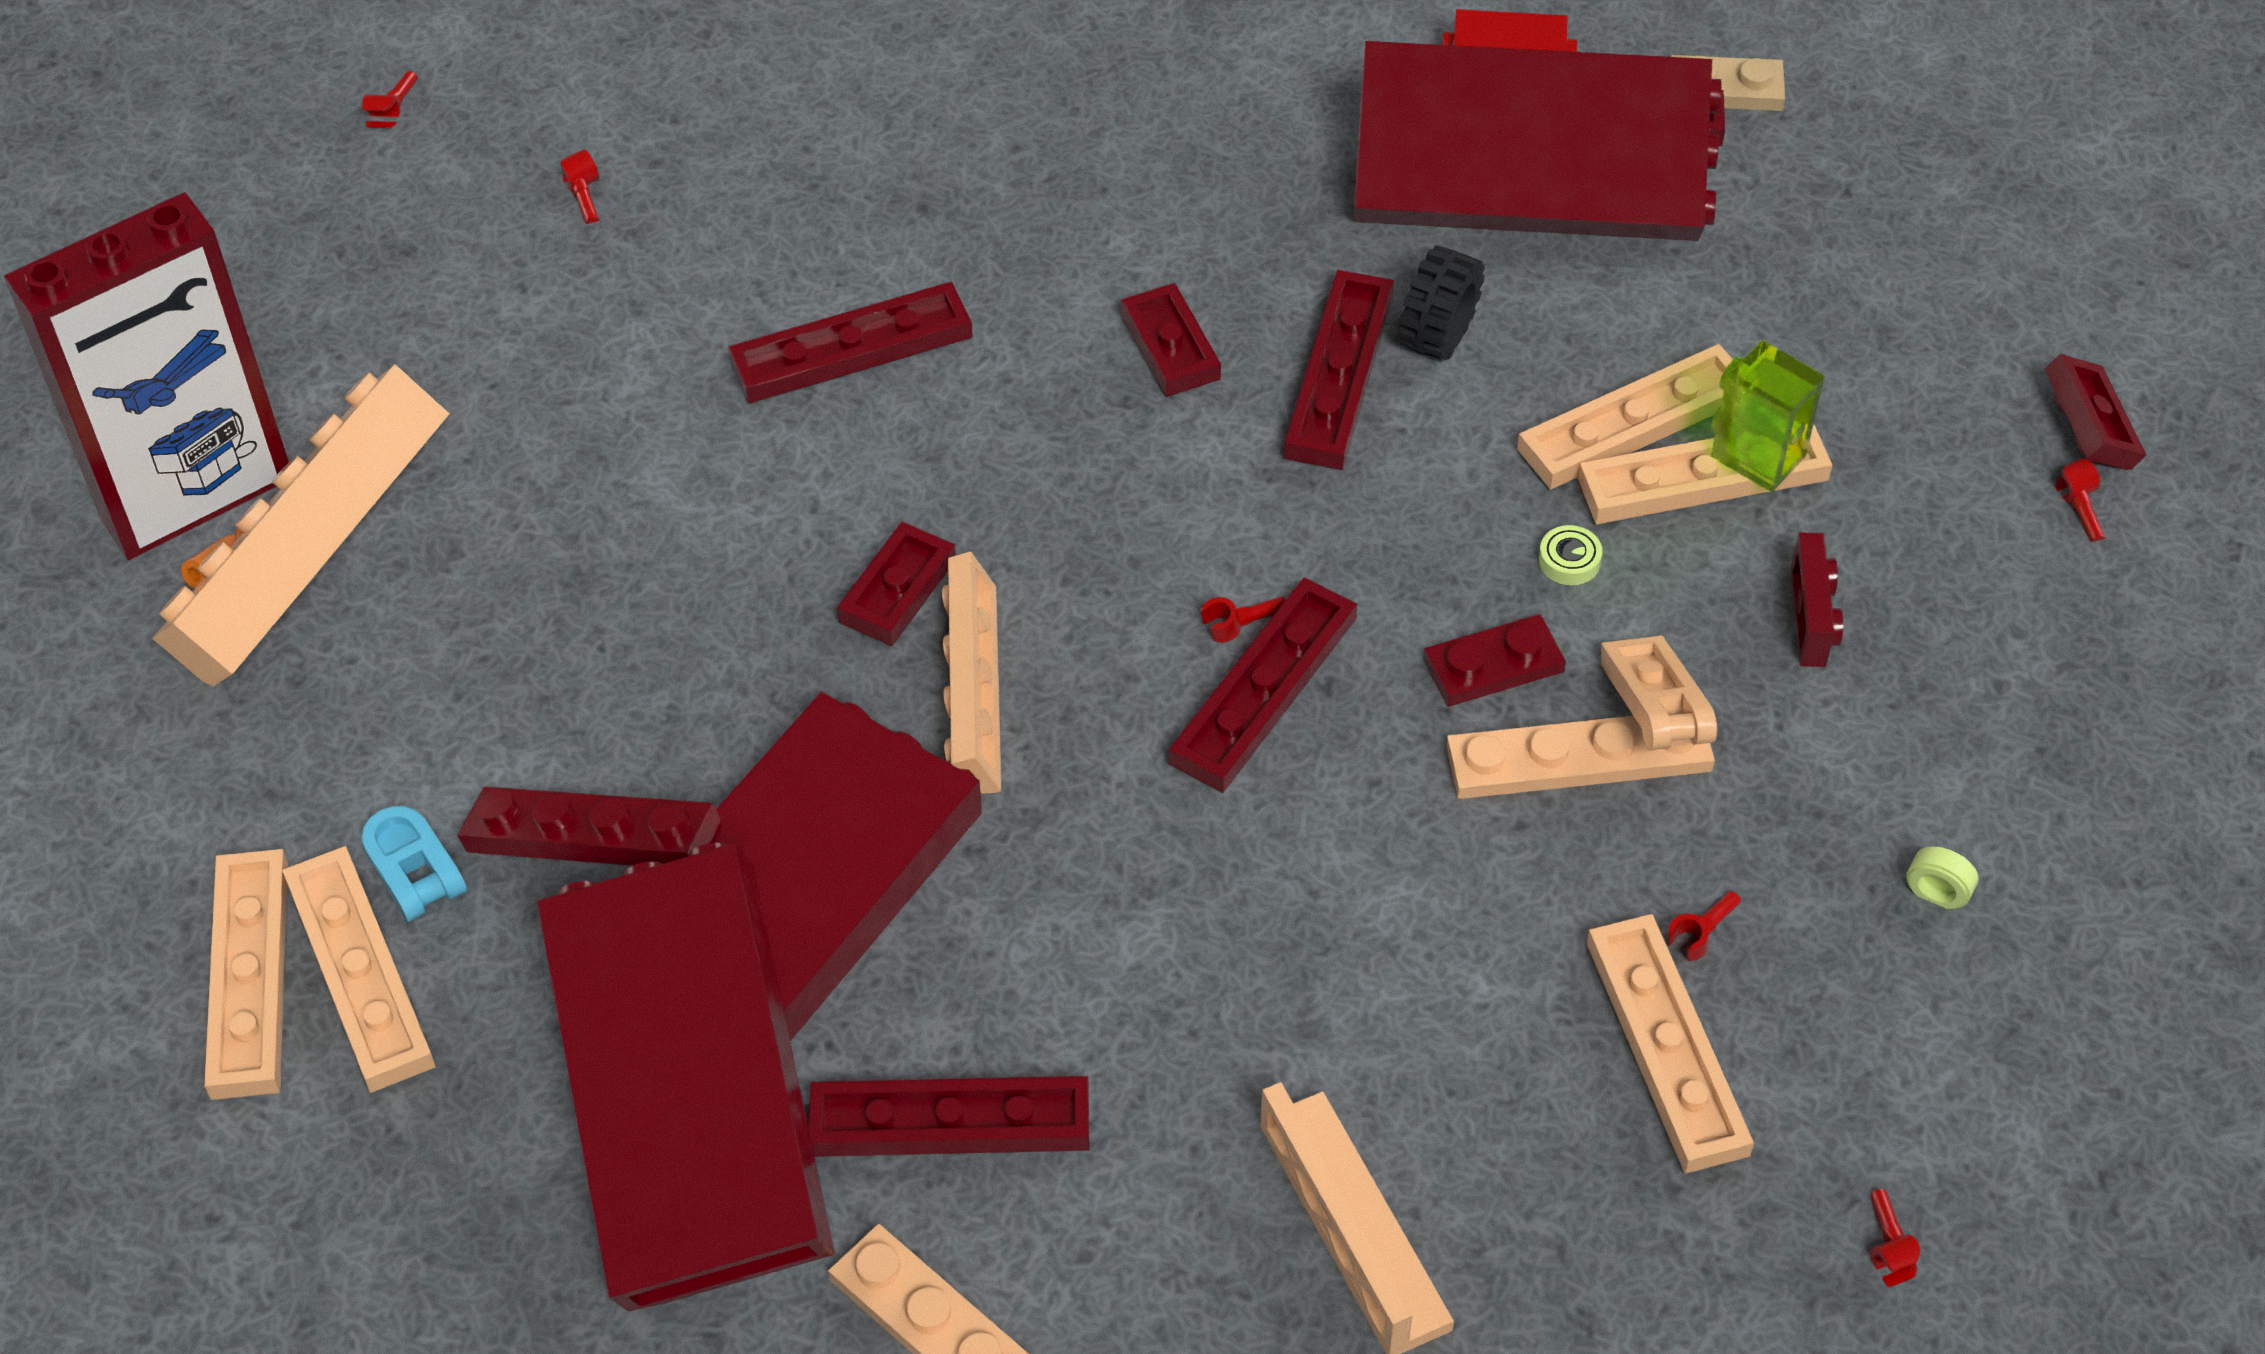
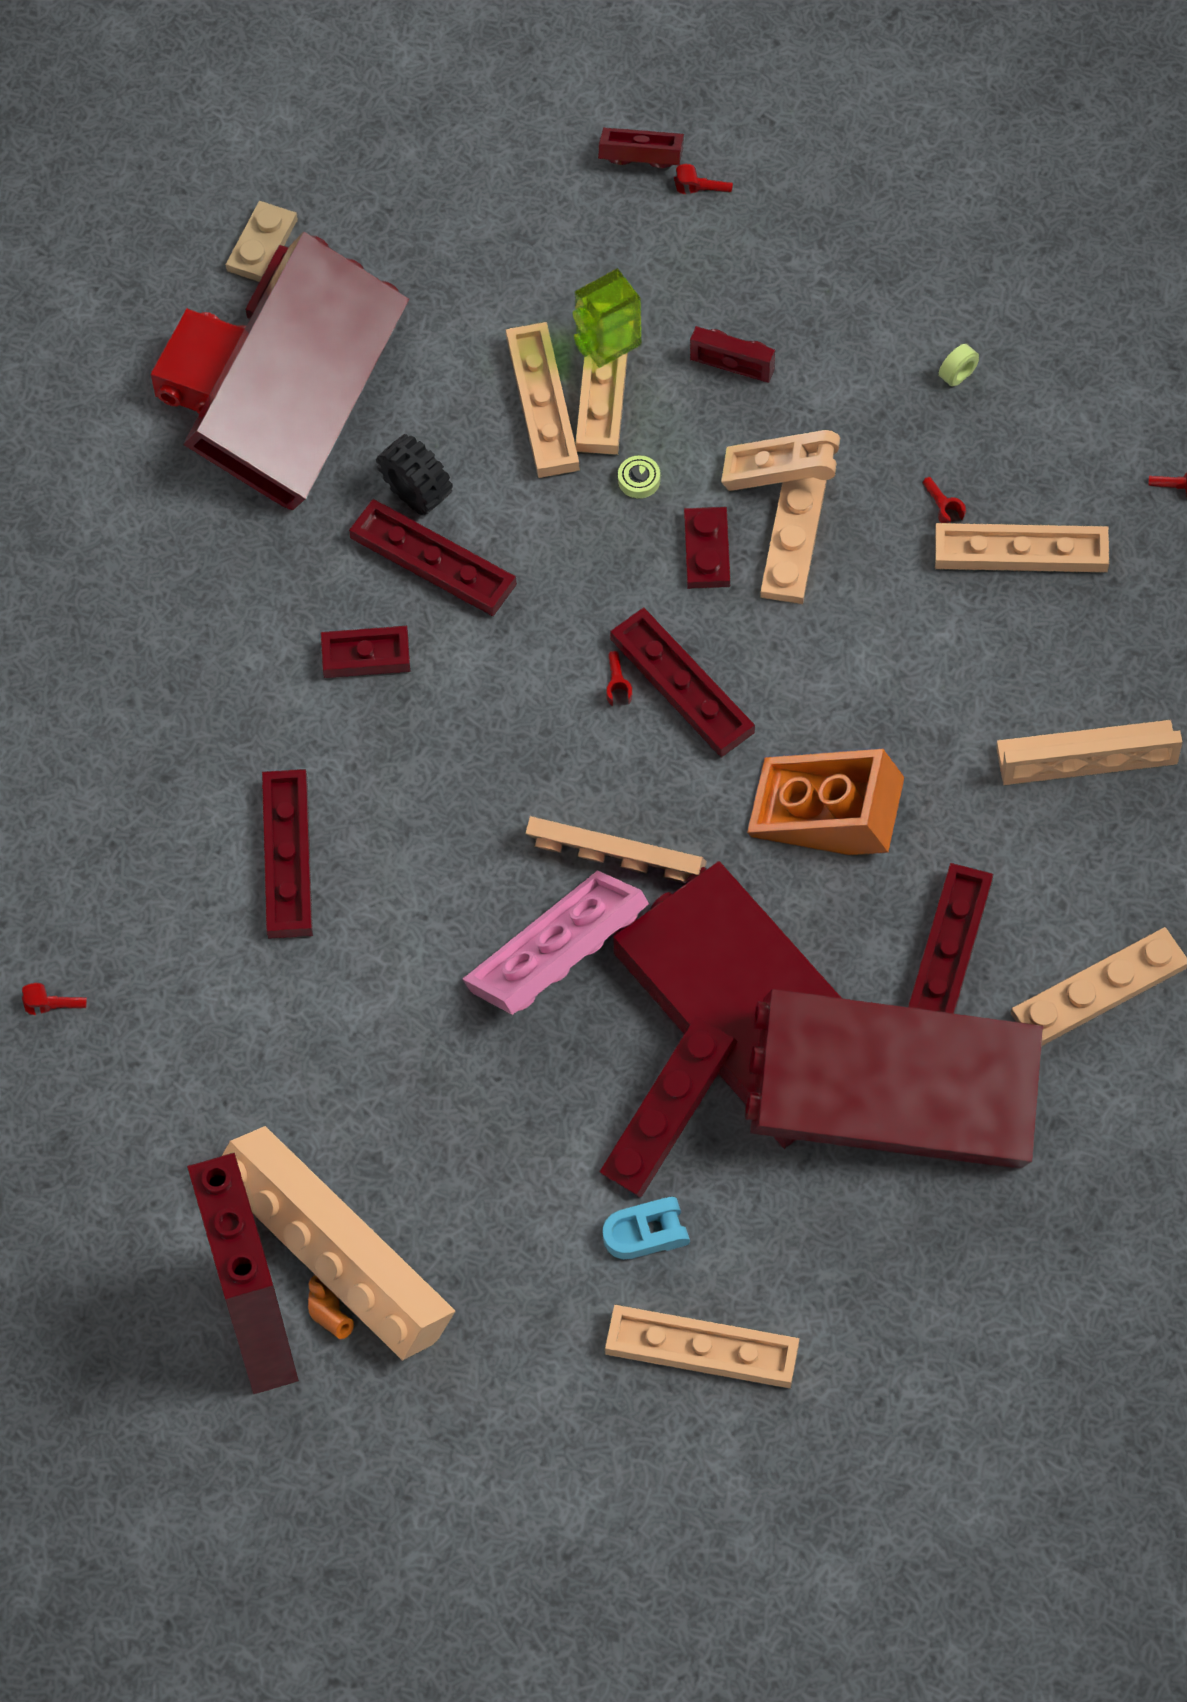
camera: 70 degrees left, 10 degrees up
(358, 969) = (722, 1276): light nougat plate -> none
(799, 636) = (556, 942): none -> bright pink plate
(896, 584) = (518, 876): dark red plate -> none
(1137, 905) = (828, 801): none -> orange slope

